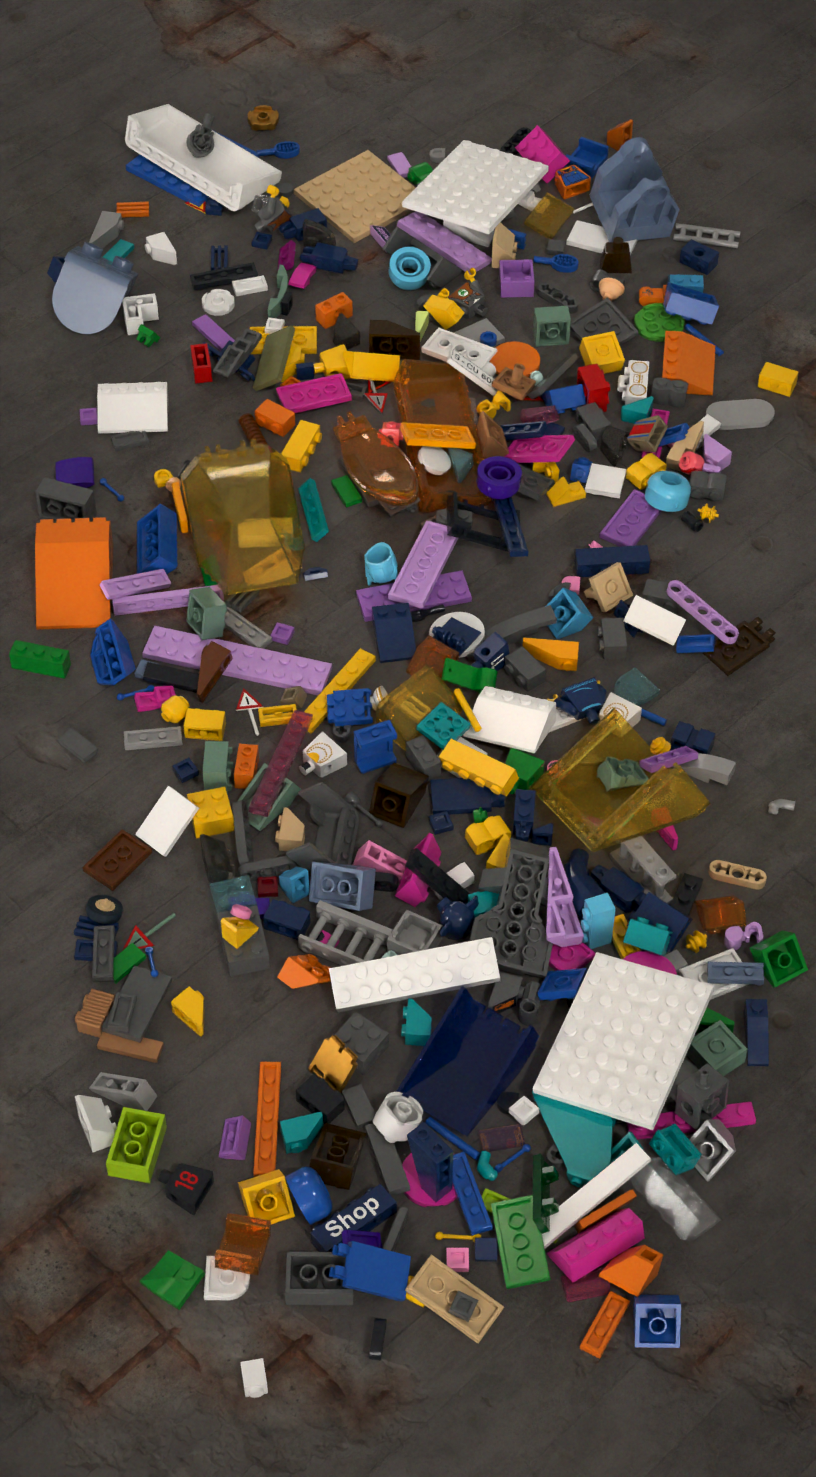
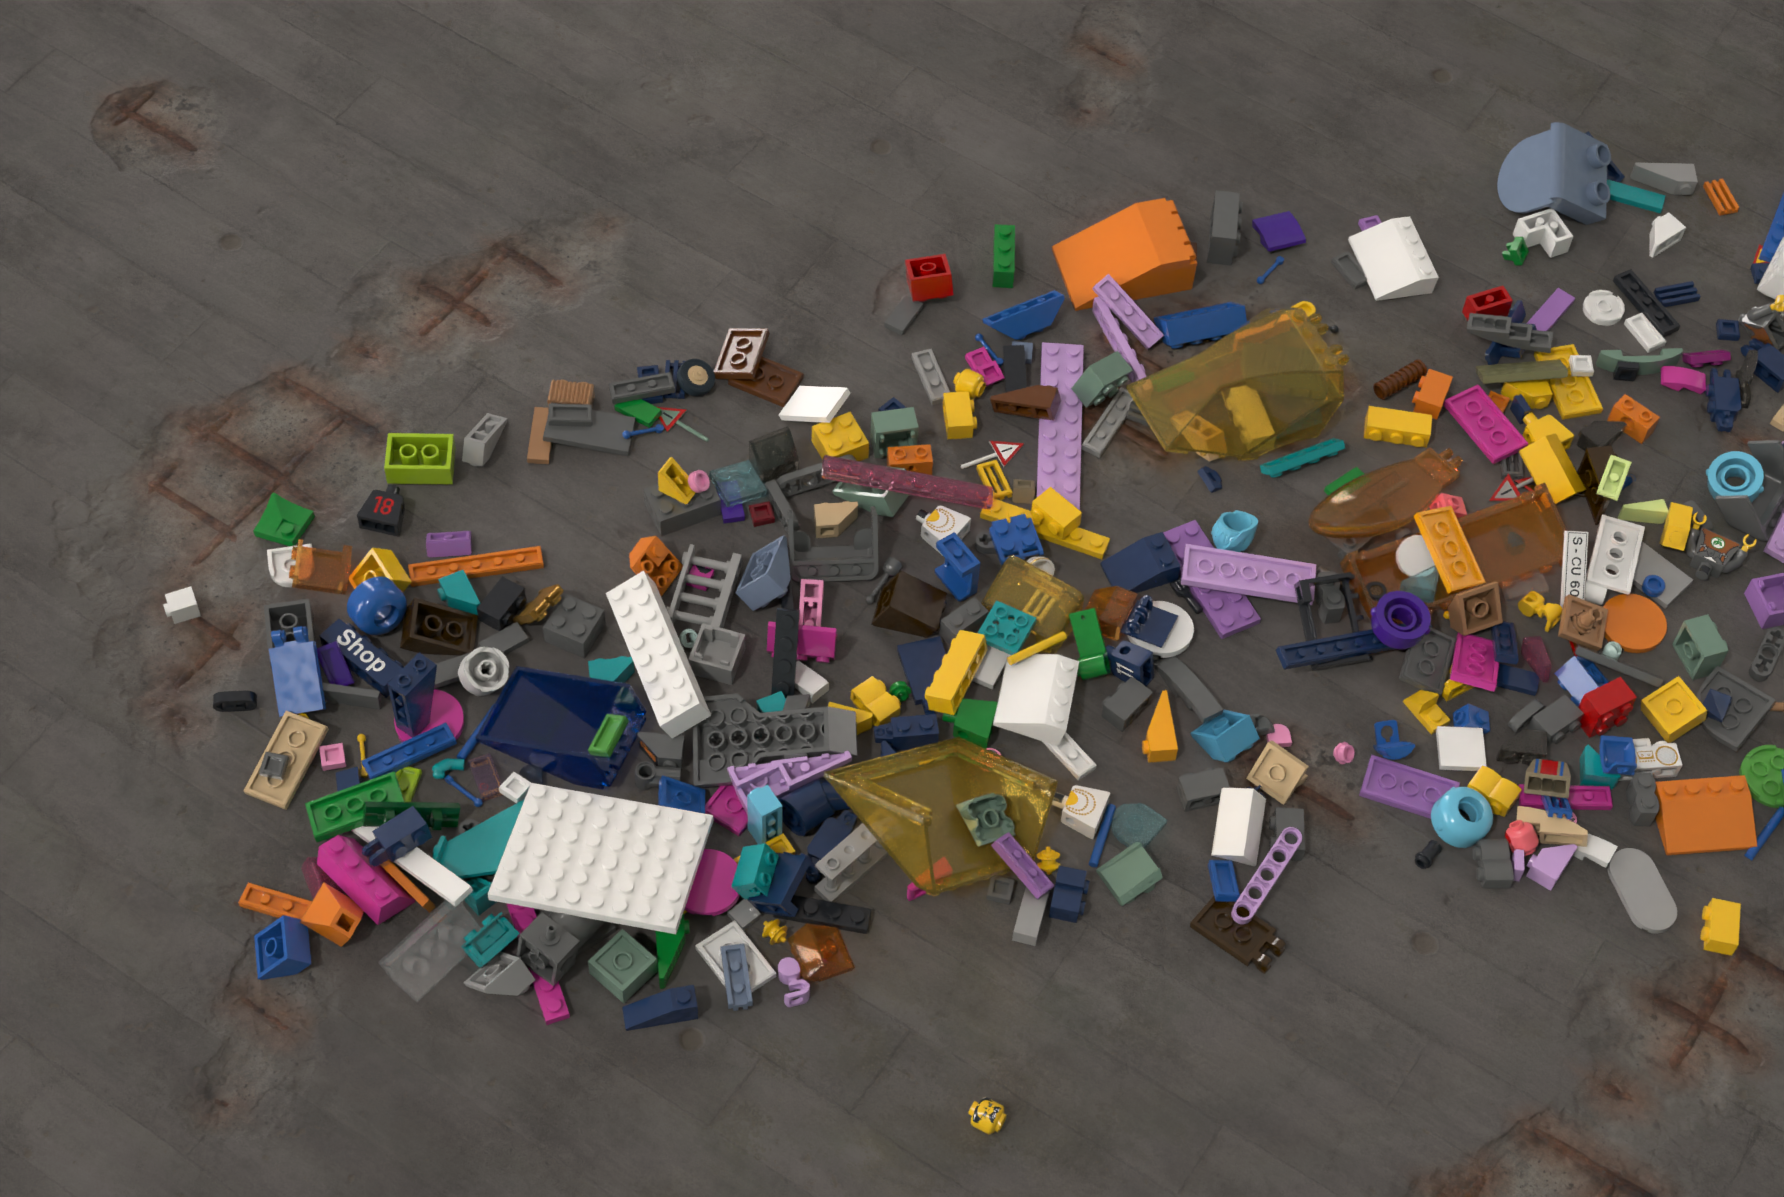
camera: 75 degrees right, 5 degrees up
(51, 713) = (929, 277): none -> red brick
(86, 870) = (741, 353): none -> tile
(95, 1122) = (440, 415): white slope -> none
(190, 1009) = (589, 475): yellow slope -> none
(282, 633) = (1111, 463): medium lavender tile -> none
(286, 919) = (718, 535): dark blue brick -> none
(295, 883) = (762, 530): dark azure slope -> none
(334, 672) = (1056, 513): none -> yellow brick
(402, 323) = (1613, 477): none -> yellowish green slope
(441, 822) = (885, 657): dark blue tile -> none
(456, 917) = (747, 682): dark blue piece -> none
(482, 1032) = (608, 735): none -> bright green tile
(571, 1198) = (397, 837): none -> dark blue hinge
(582, 700) = (1092, 767): dark blue torso -> none
(594, 560) = (1327, 772): dark blue brick -> none
(597, 518) = (1394, 749): none -> blue piece
(602, 326) = (1717, 705): none -> dark blue slope
(641, 389) = (1617, 755): none -> blue piece
(679, 699) = (1130, 874): none -> sand green slope
(707, 512) = (1447, 870): yellow wheel -> none
(749, 883) = (888, 976): tan beam -> none
(780, 957) = (769, 1021): green slope -> none
(782, 804) = (995, 996): light grey arm -> none

